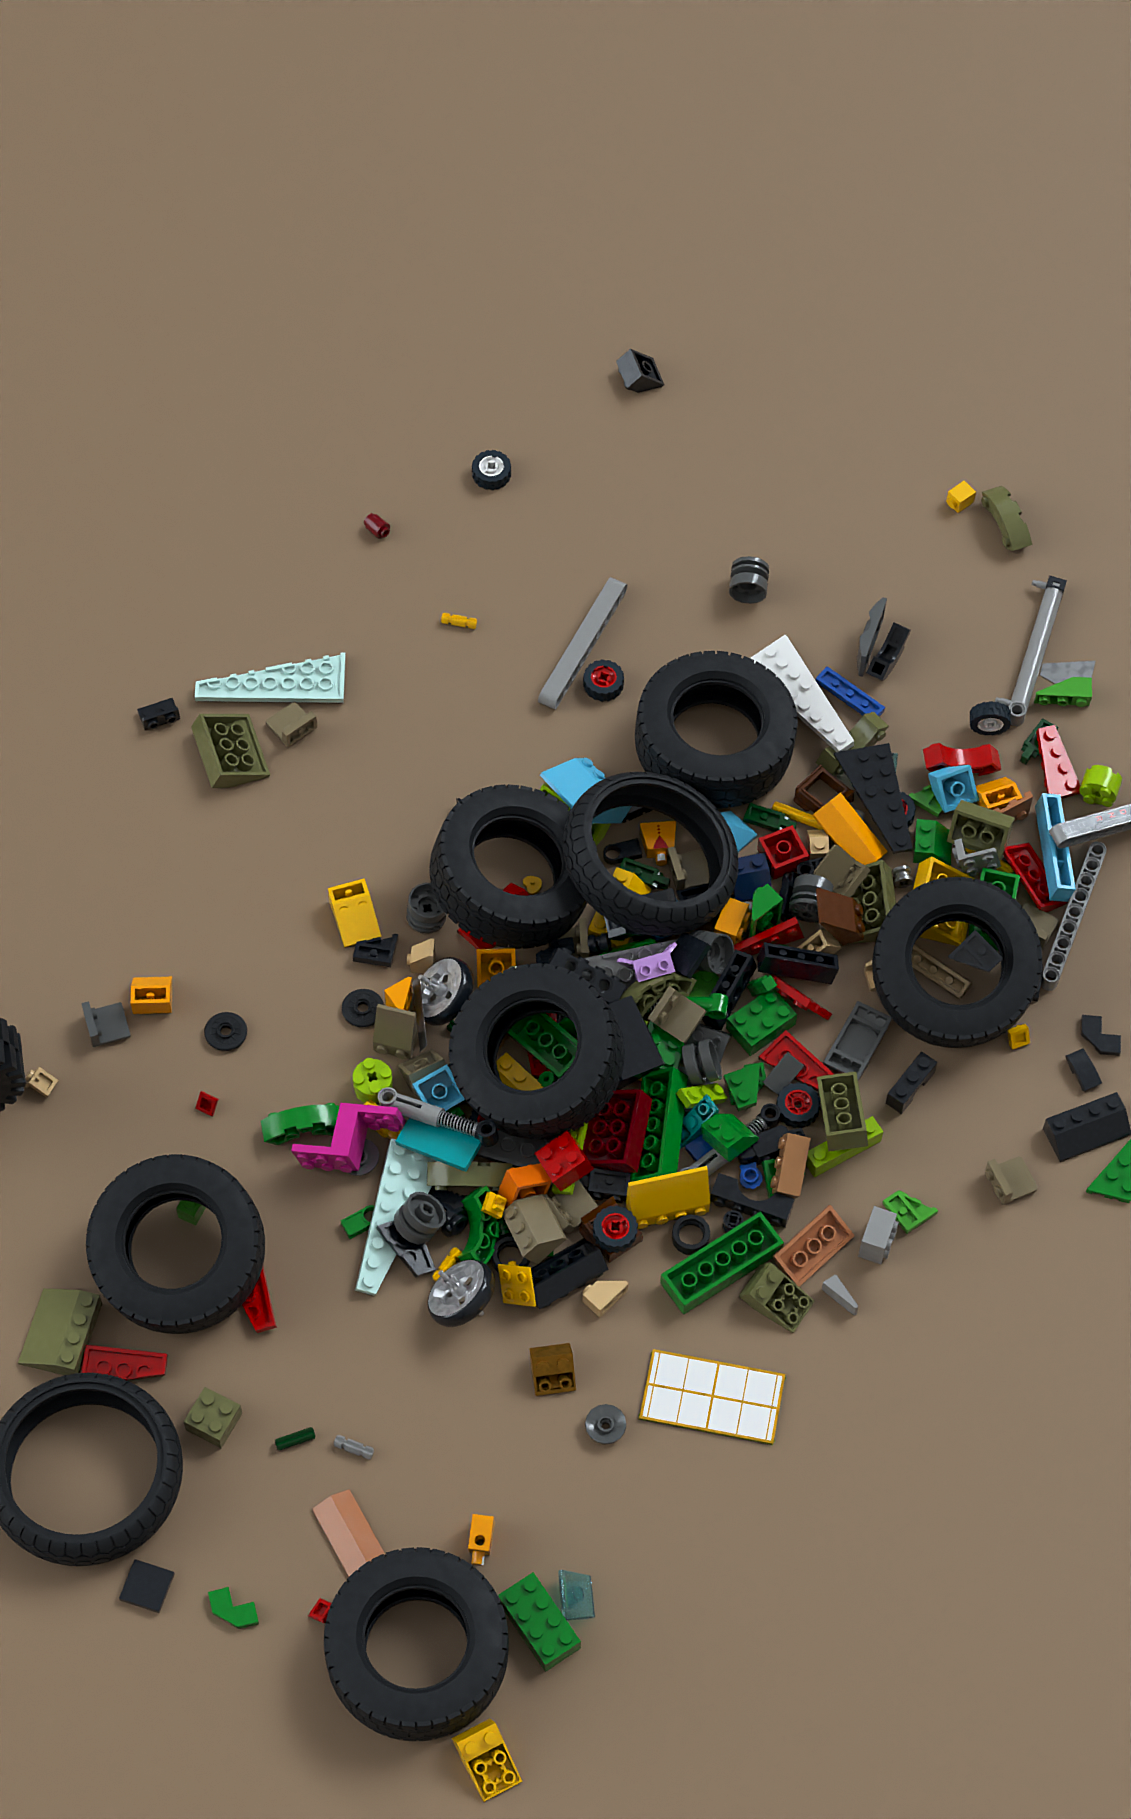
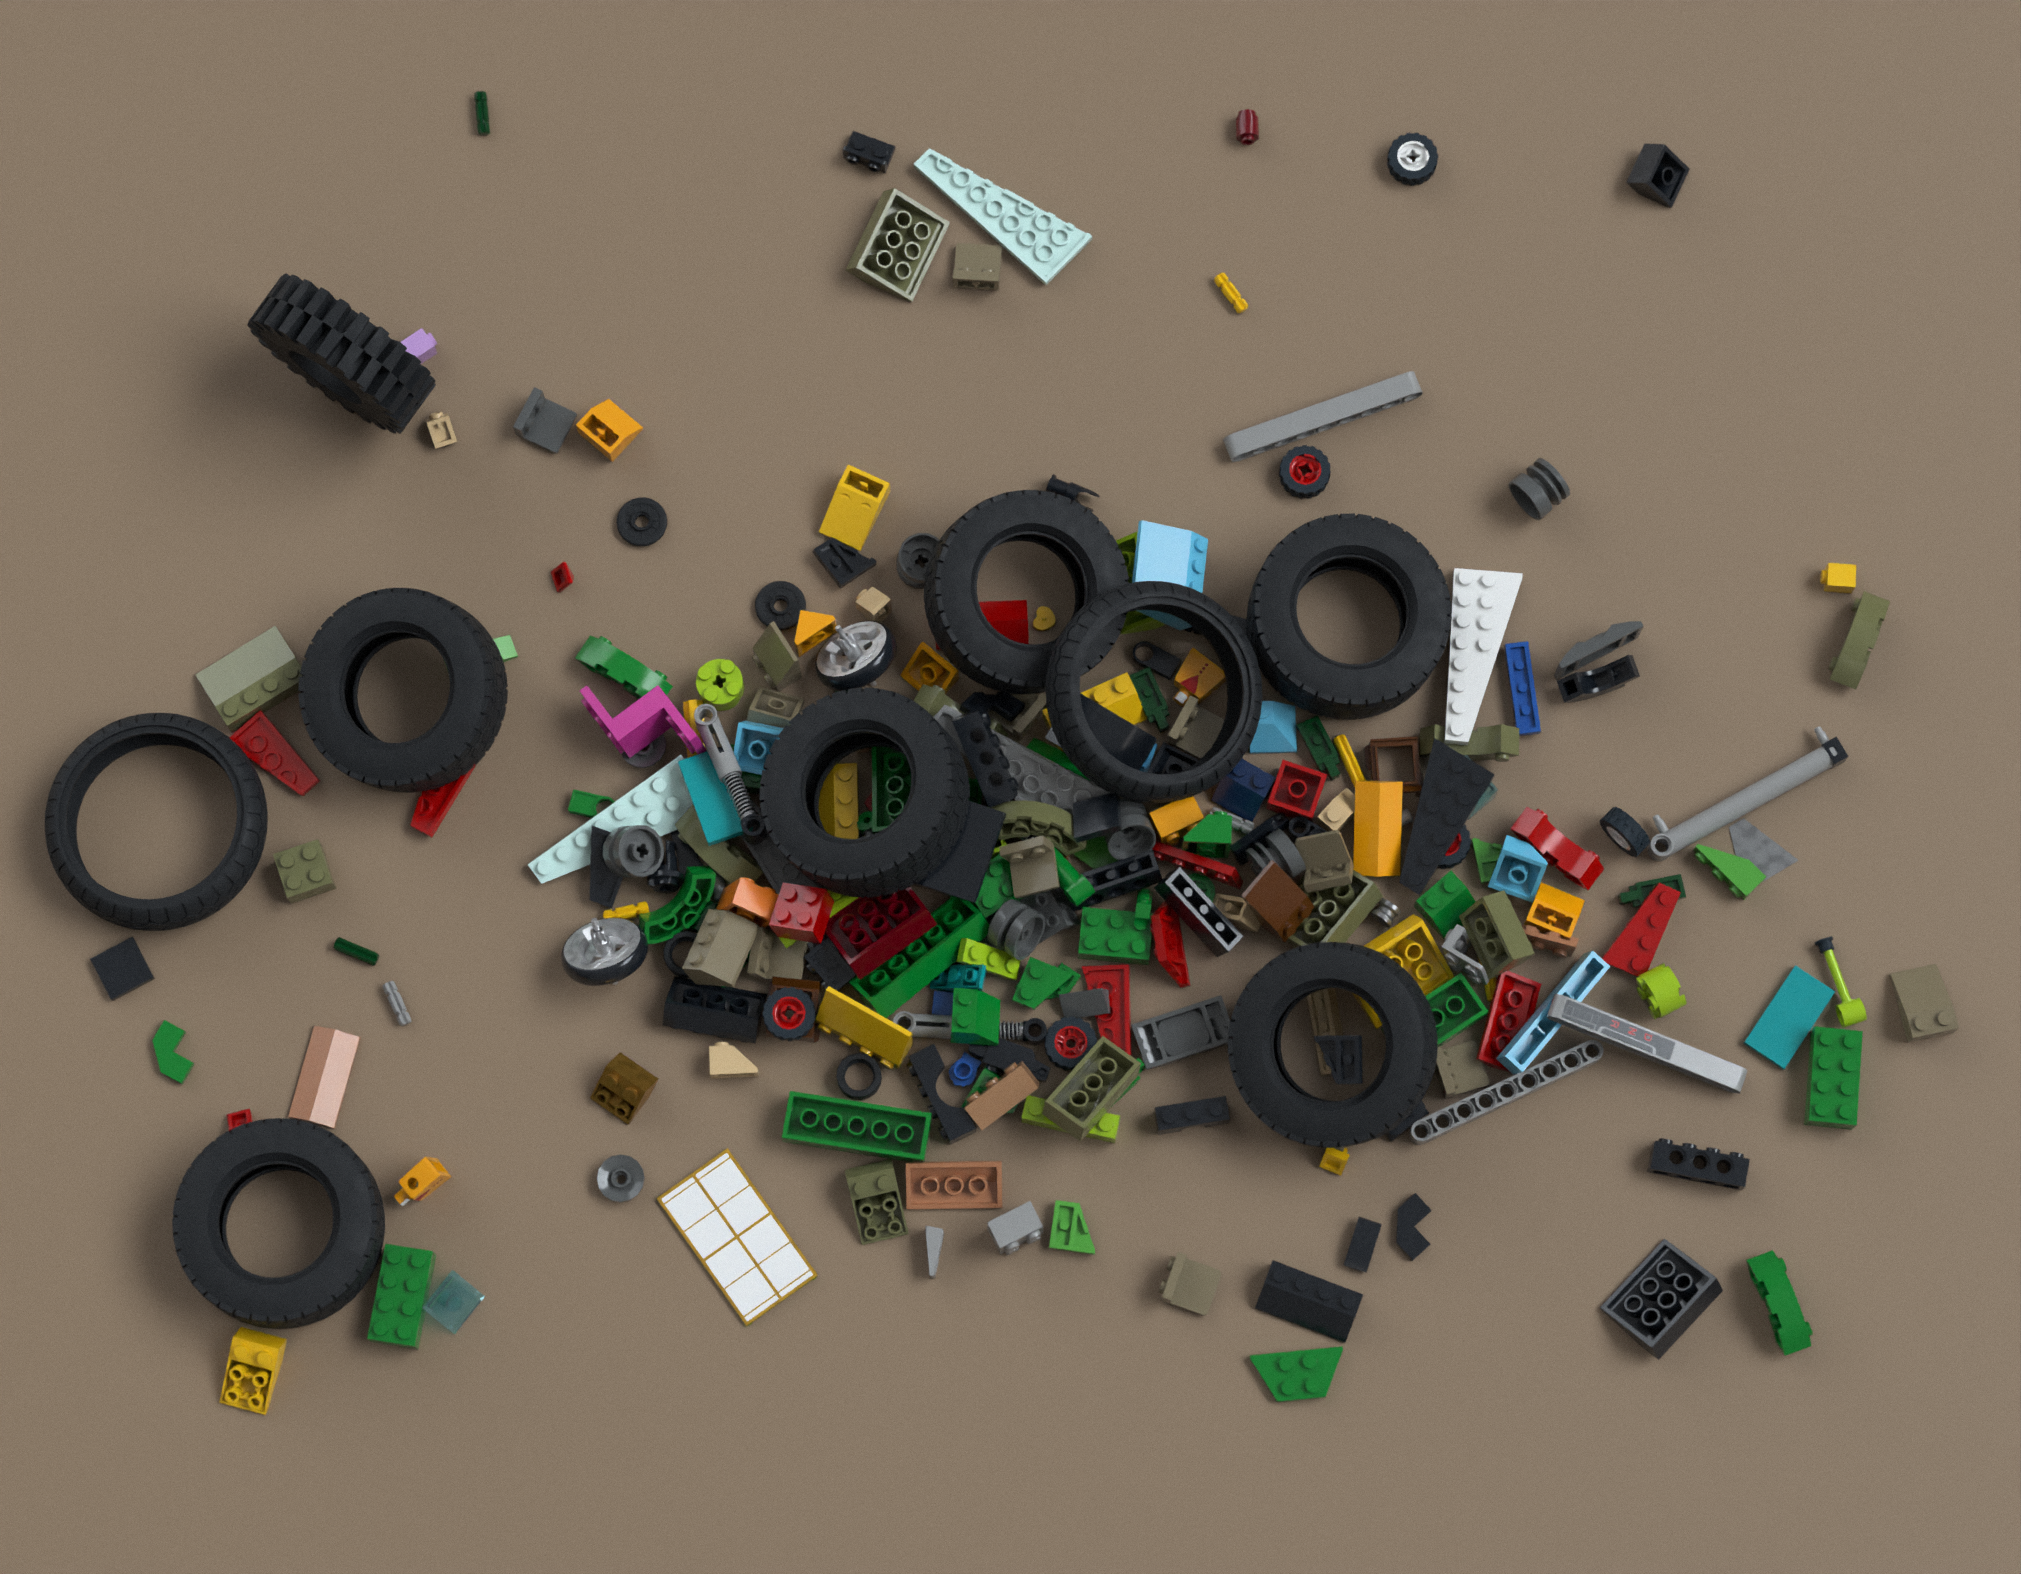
camera: 45 degrees right, 15 degrees up
(419, 1014) = (816, 659): flat silver sticker -> none
(494, 1205) = (706, 897): yellow tile -> none
(516, 1284) = (660, 985): yellow hinge -> none
(599, 943) = (1037, 731): black wheel -> none
(651, 966) = (1054, 799): lavender piece -> none
(728, 1224) = (904, 1102): black wheel -> none

